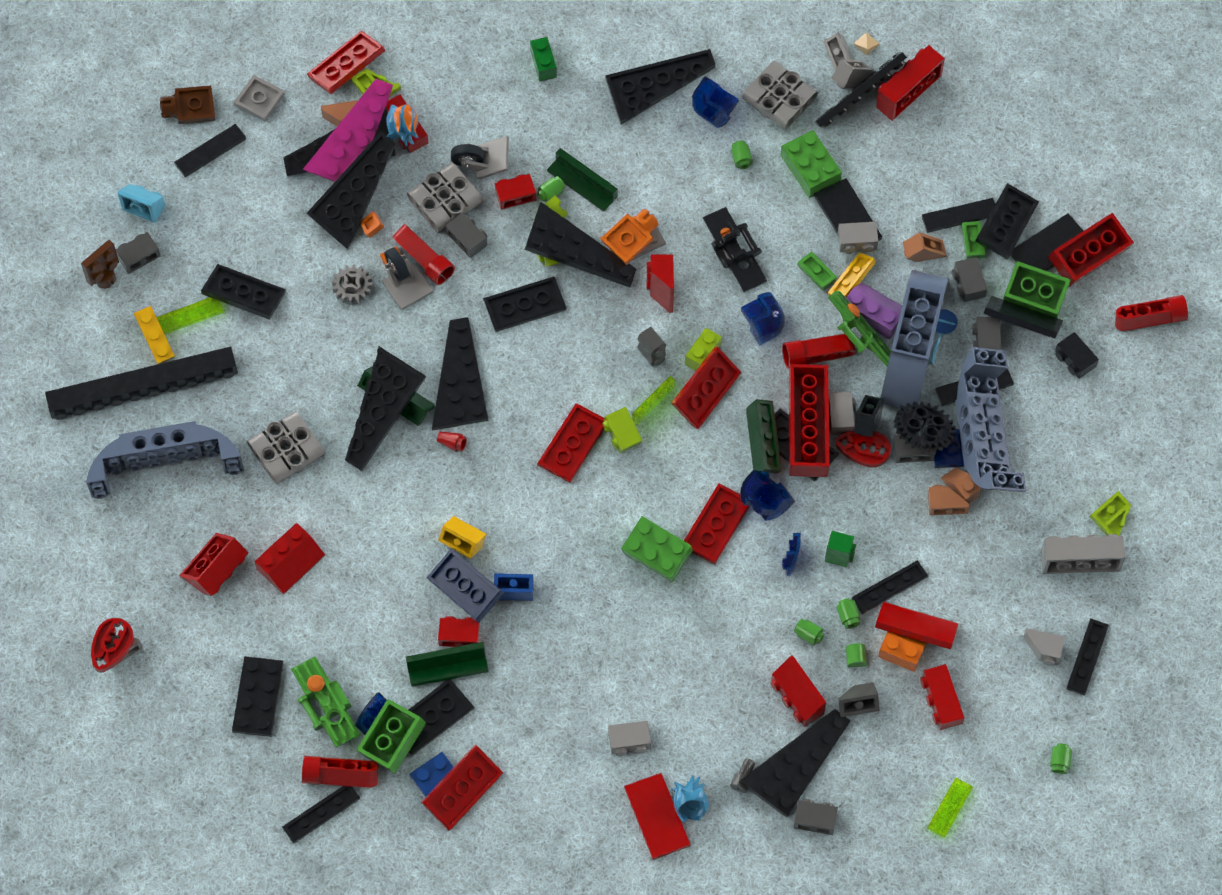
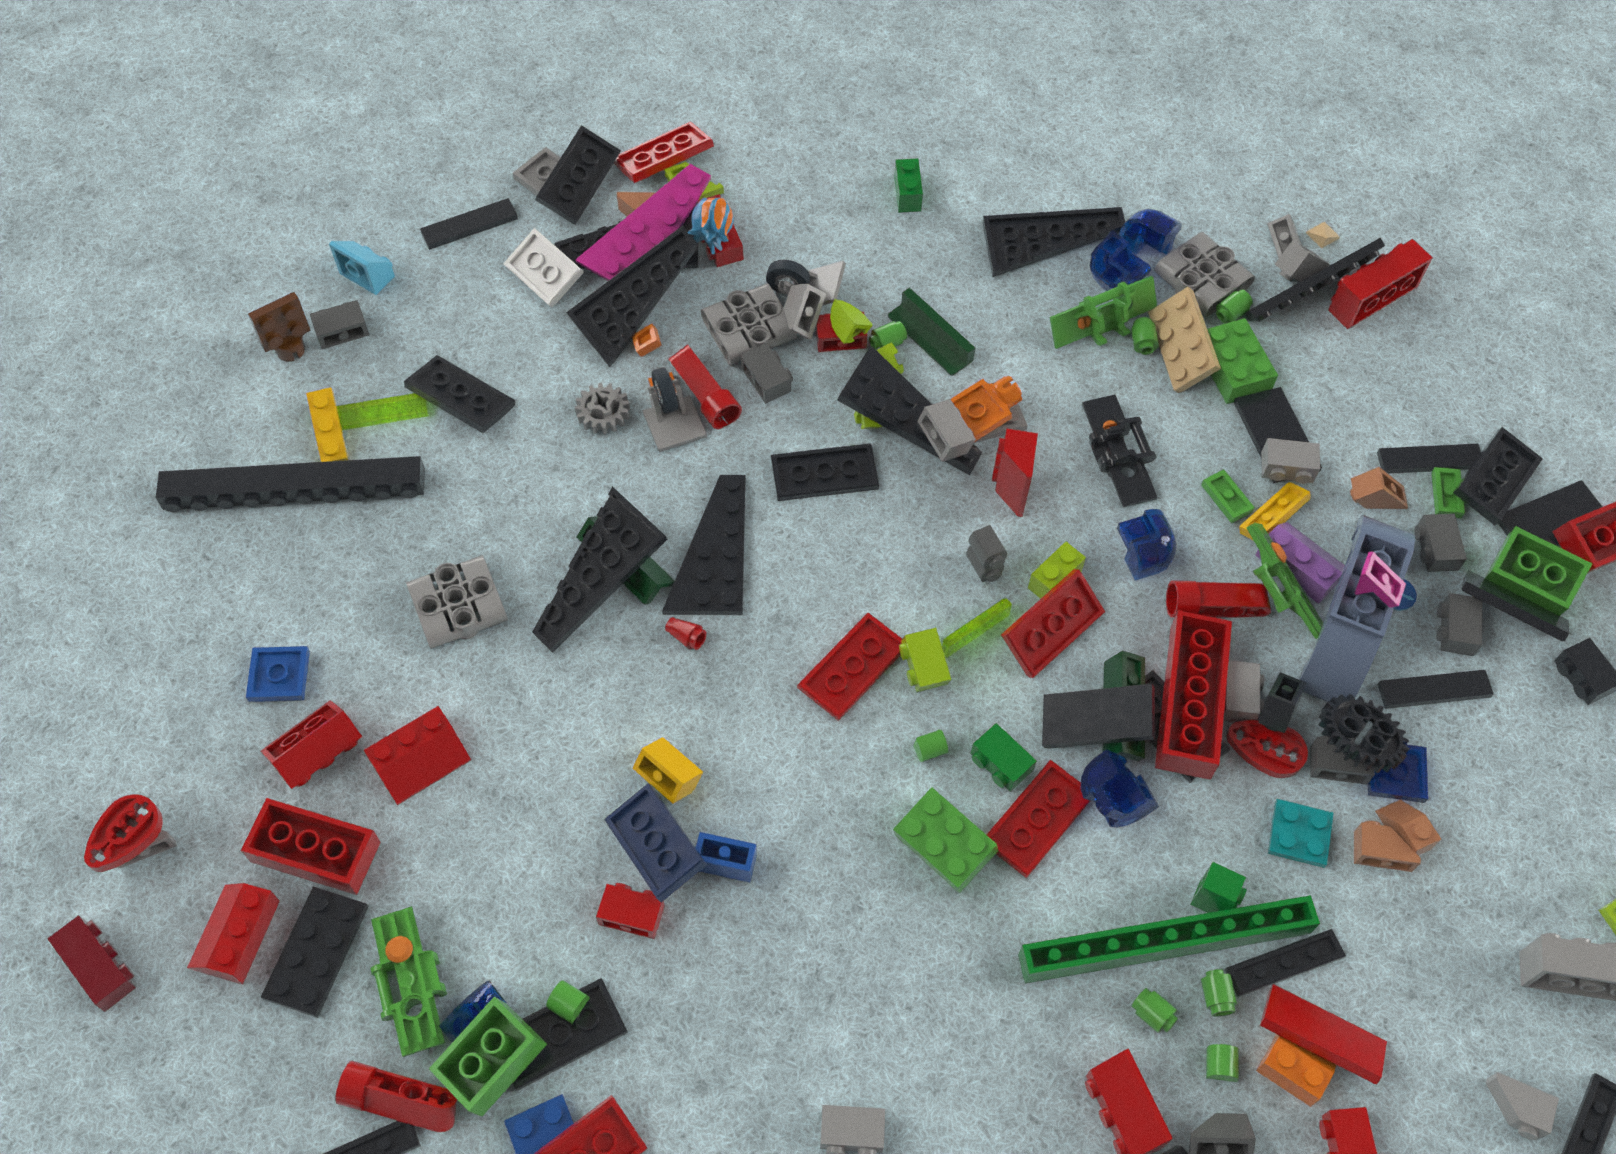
camera: 10 degrees right, 5 degrees down
(115, 729) = (93, 962): none -> dark red brick
(160, 446) = (276, 569): sand blue slope -> none
(175, 521) = (278, 674): none -> blue plate
(189, 105) = (457, 168): reddish brown plate -> none
(200, 693) = (234, 932): none -> red slope
(237, 630) = (311, 846): none -> red brick
(279, 178) = (543, 267): none -> white tile
(286, 96) = (578, 175): none -> black plate
(431, 695) = (566, 1001): none -> bright green brick
(447, 664) = (602, 956): dark green panel -> none
(484, 181) = (803, 308): none -> light grey slope
(520, 185) = (848, 321): none -> lime brick
(607, 259) = (946, 430): none -> light grey brick
(636, 488) = (930, 745): none -> bright green brick
(686, 487) = (1002, 757): none -> green brick
(708, 143) = (1094, 321): none -> bright green piece
(733, 66) = (1150, 228): none -> clear blue brick
(746, 448) = (1099, 716): none -> black tile
(770, 154) = (1184, 340): none -> tan plate
(791, 558) = (1145, 885): clear blue slope -> none
(804, 119) = (1234, 306): none -> bright green brick
(811, 585) = (1167, 939): none -> green brick
(891, 501) = (1300, 833): none -> teal plate
(921, 321) = (1381, 580): none -> dark pink slope
(982, 422) = (1448, 744): sand blue slope -> none

